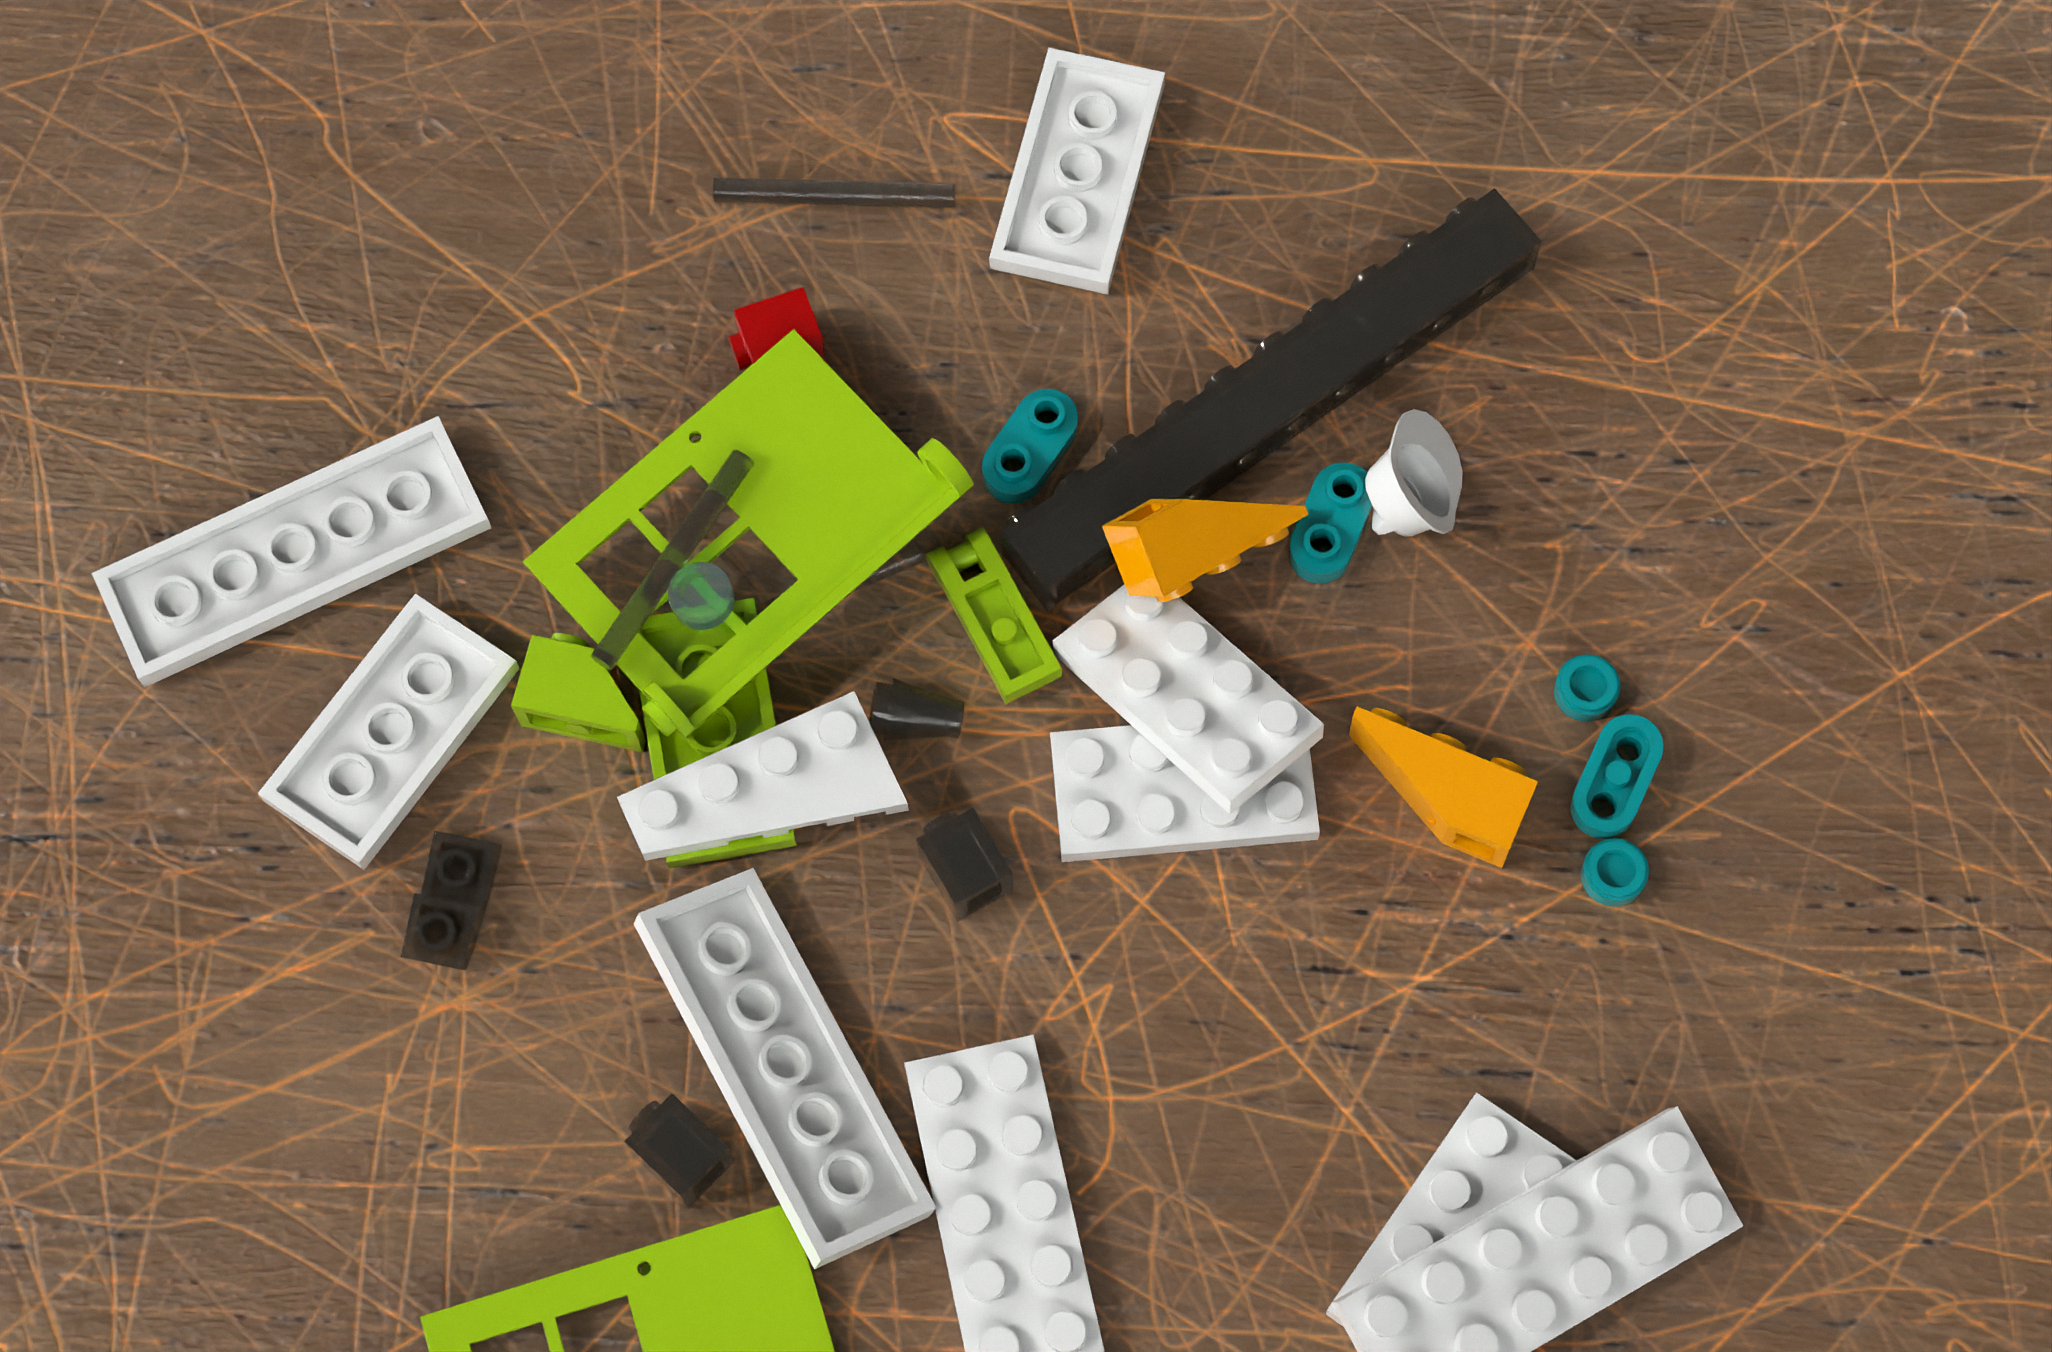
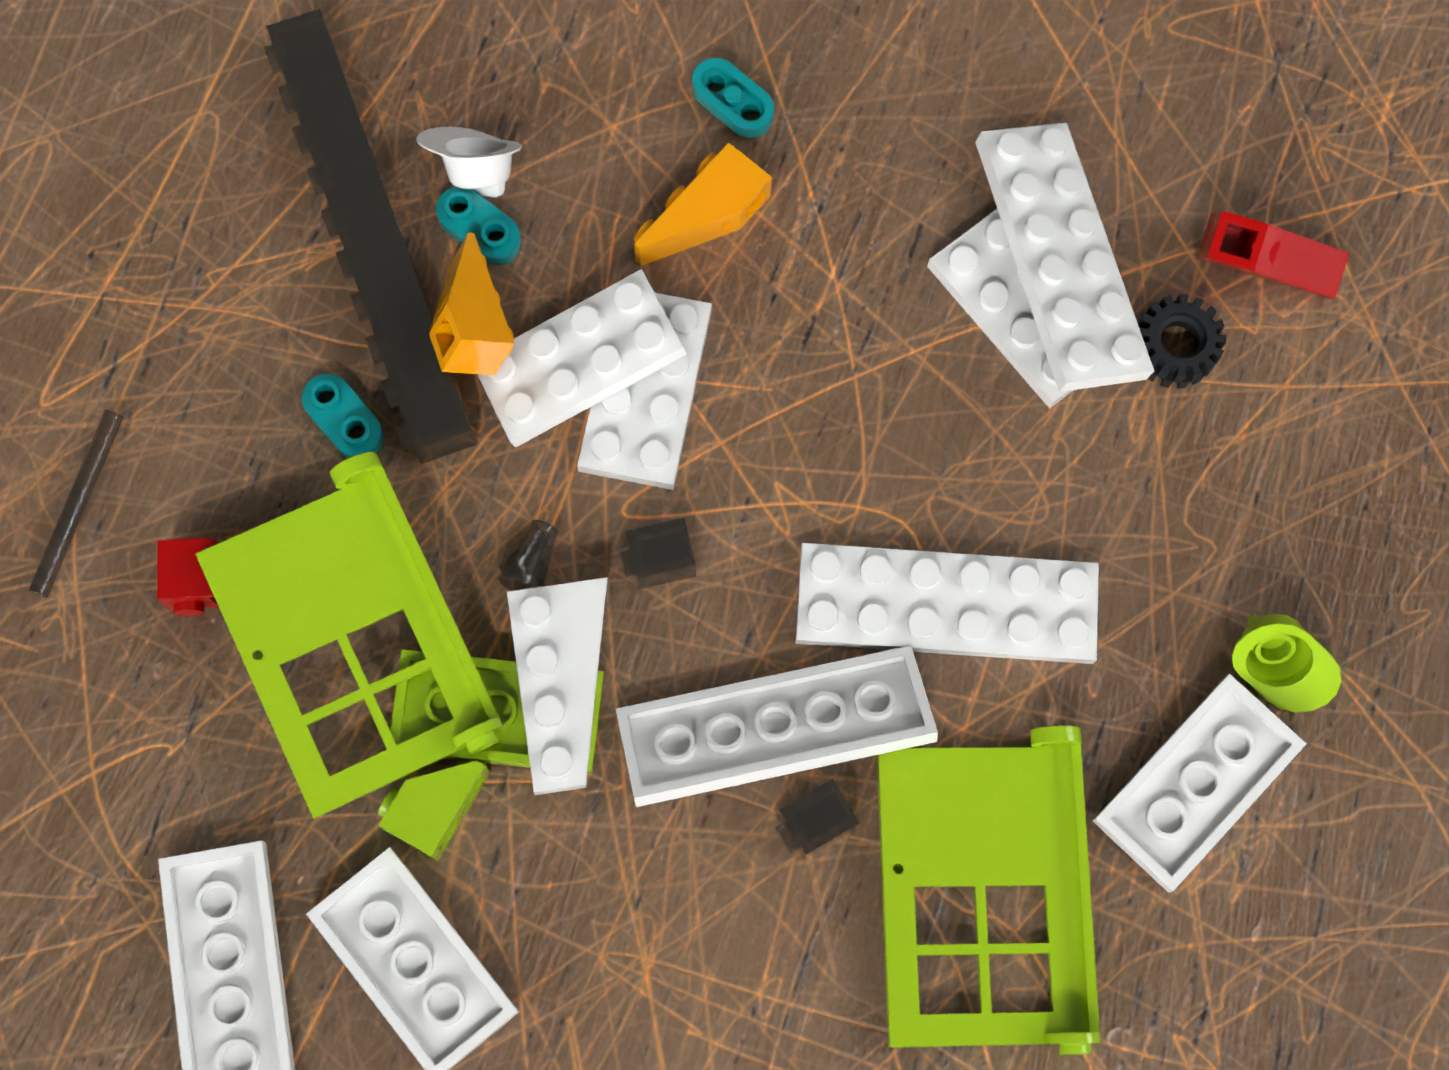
camera: 80 degrees left, 5 degrees up
(452, 901) = (566, 947): clear smoke slope -> none
(672, 559) = (356, 697): clear smoke bar -> none
(701, 596) = (392, 684): clear light blue tile -> none
(995, 616) = (470, 479): lime plate -> none
(1077, 171) = (130, 316): white plate -> none
(1587, 688) = (659, 98): teal tile -> none
(1614, 872) = (798, 124): teal tile -> none

